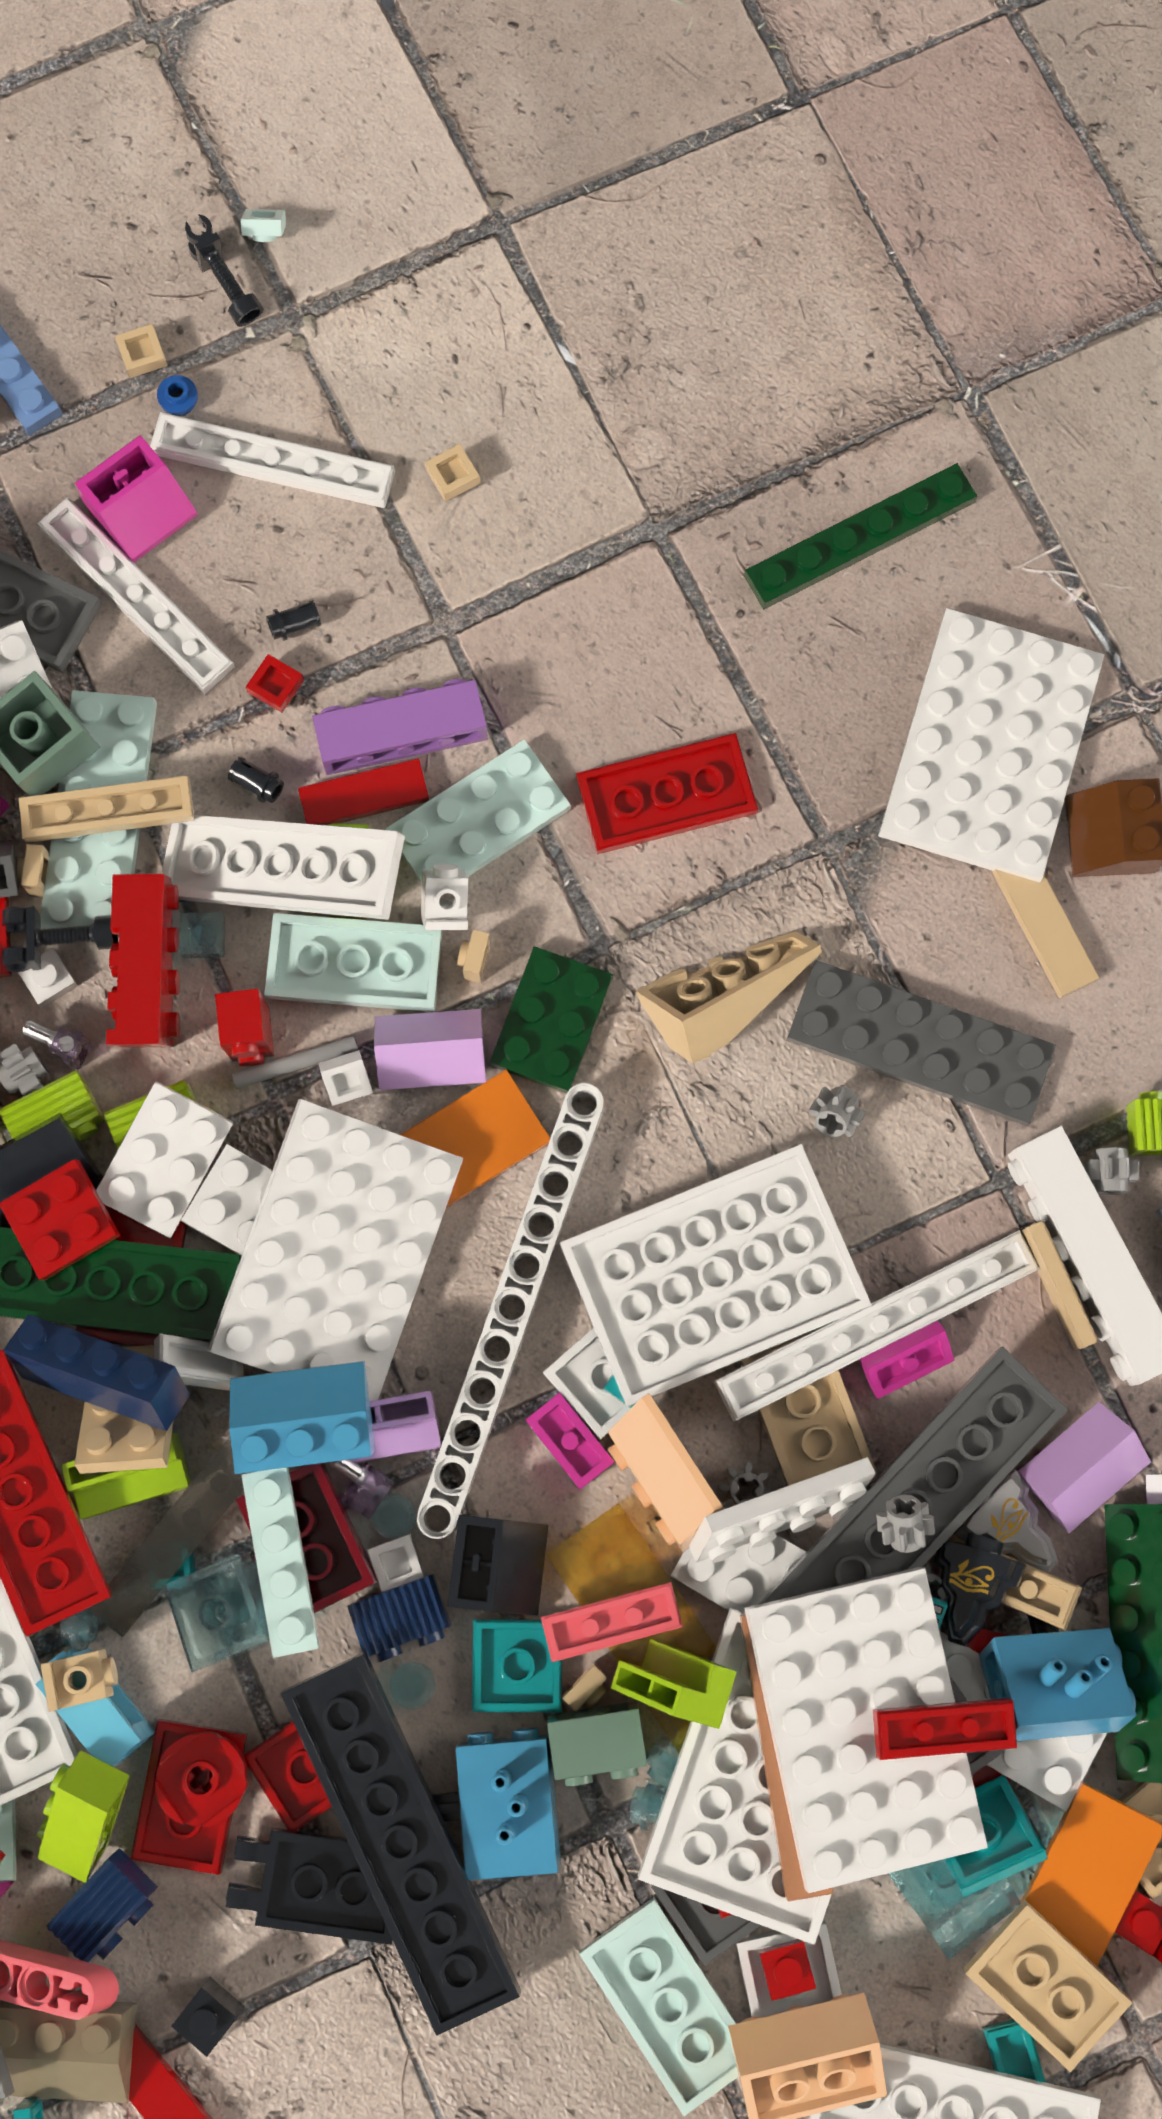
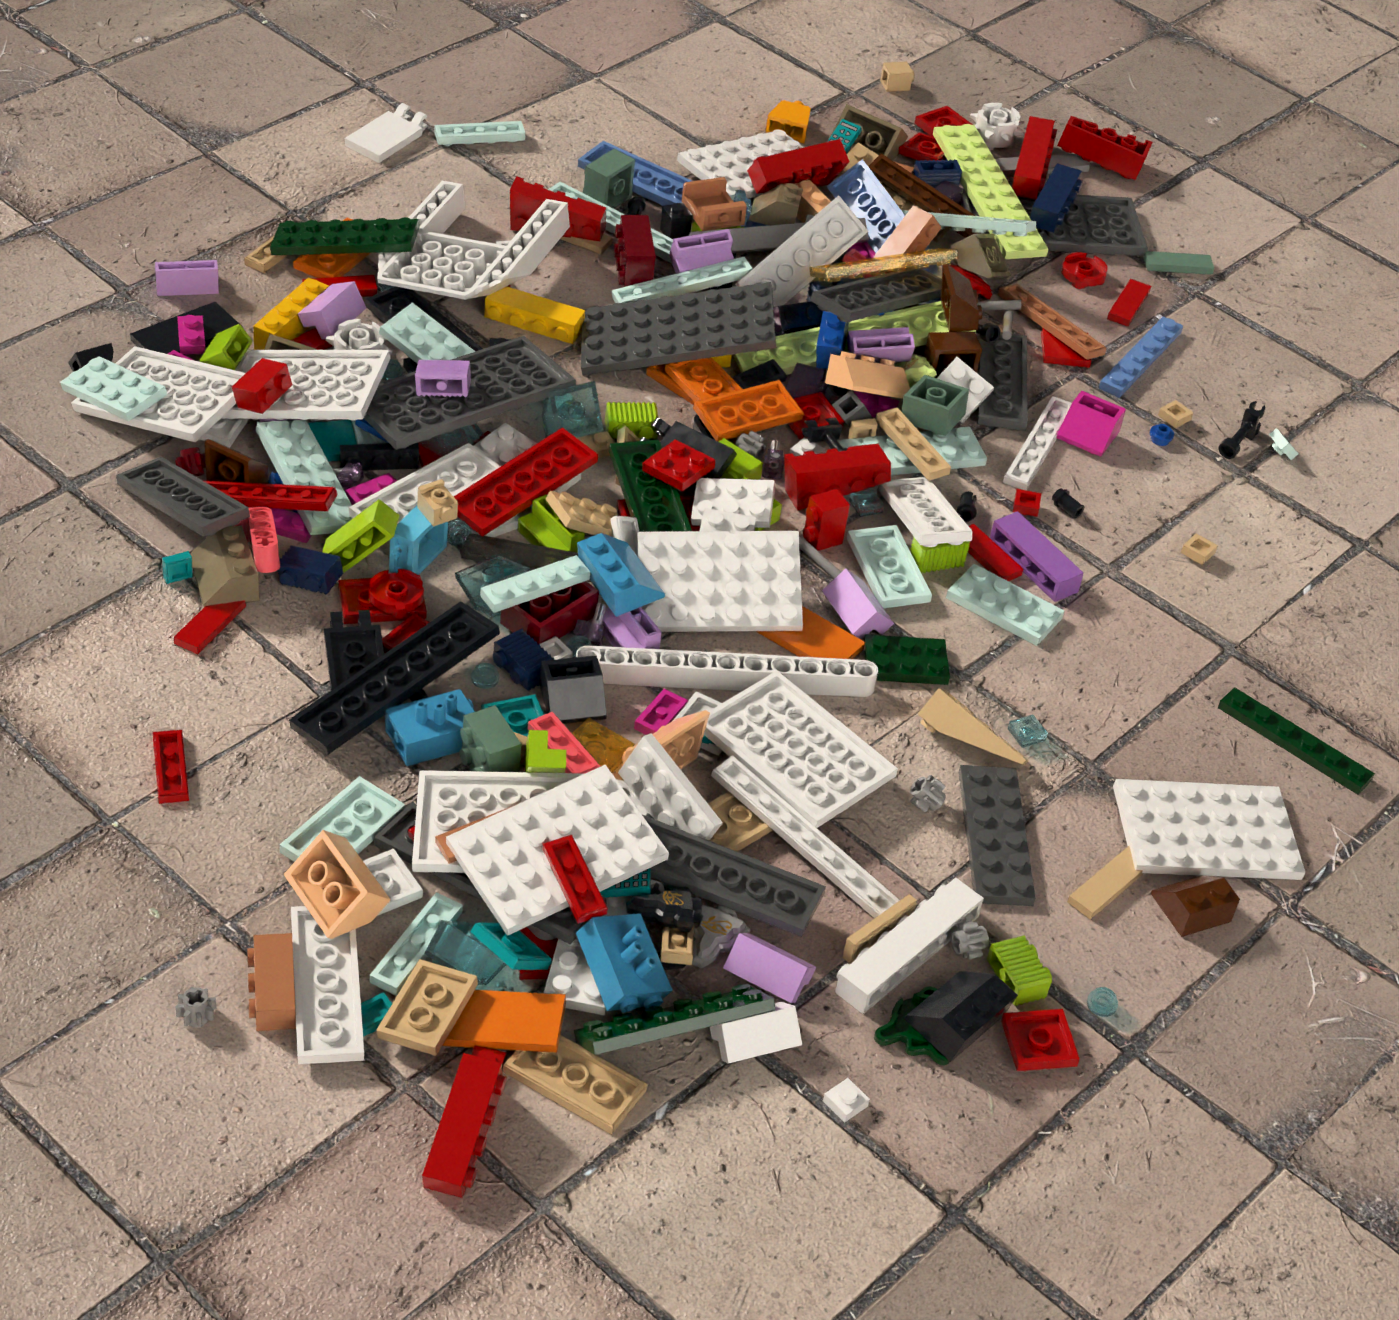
camera: 65 degrees right, 35 degrees down
(97, 1372) = (604, 491): dark blue brick -> none
(208, 2016) = (264, 624): black brick -> none
(272, 460) = (1153, 480): white tile -> none
(345, 1078) = (820, 574): white plate -> none
(444, 915) = (949, 589): white brick -> none
(474, 955) = (923, 614): tan plate -> none
(666, 793) = (1074, 683): red tile -> none
(749, 909) = (1027, 731): none -> clear light blue plate
(787, 1969) = (389, 870): red plate -> none
(905, 1523) = (691, 847): light grey gear -> none
(907, 1359) = (789, 857): dark pink plate -> none
(915, 1960) = (411, 946): none -> light aqua plate

